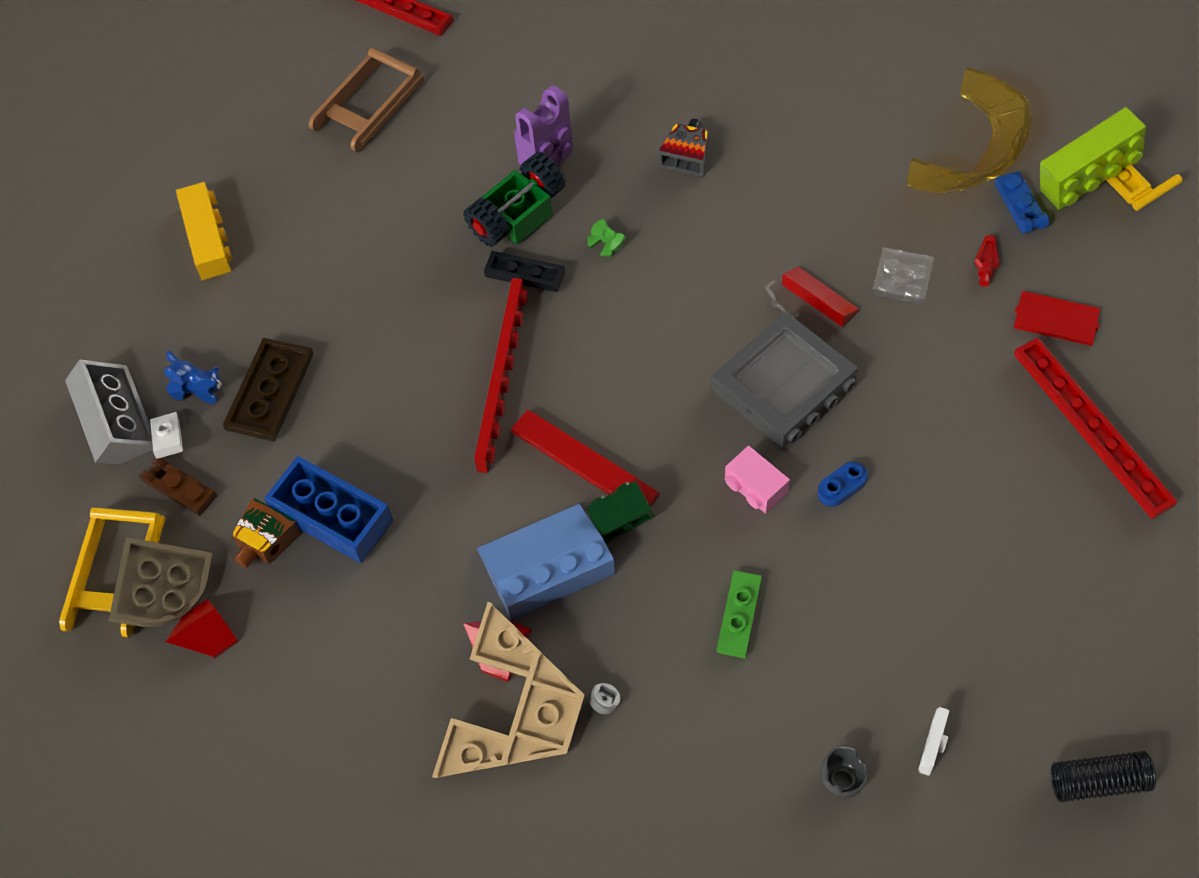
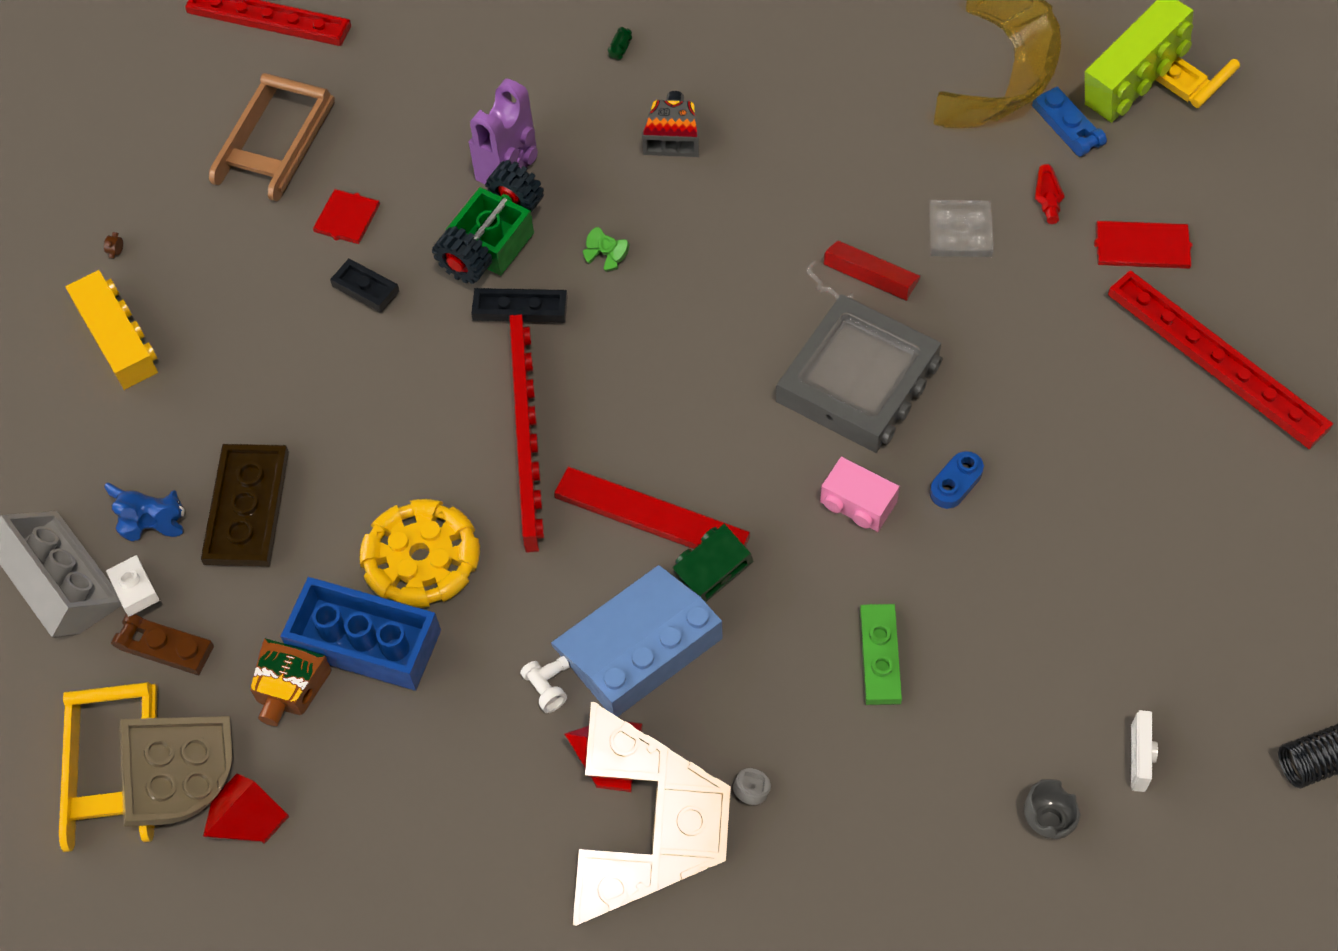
camera: 15 degrees left, 0 degrees up
(222, 164) = (113, 245): none -> reddish brown piece
(385, 442) = (421, 535): none -> yellow plate
(407, 232) = (364, 285): none -> black plate
(408, 174) = (346, 216): none -> red piece
(464, 592) = (551, 697): none -> white piece
(663, 72) = (620, 43): none -> dark green piece

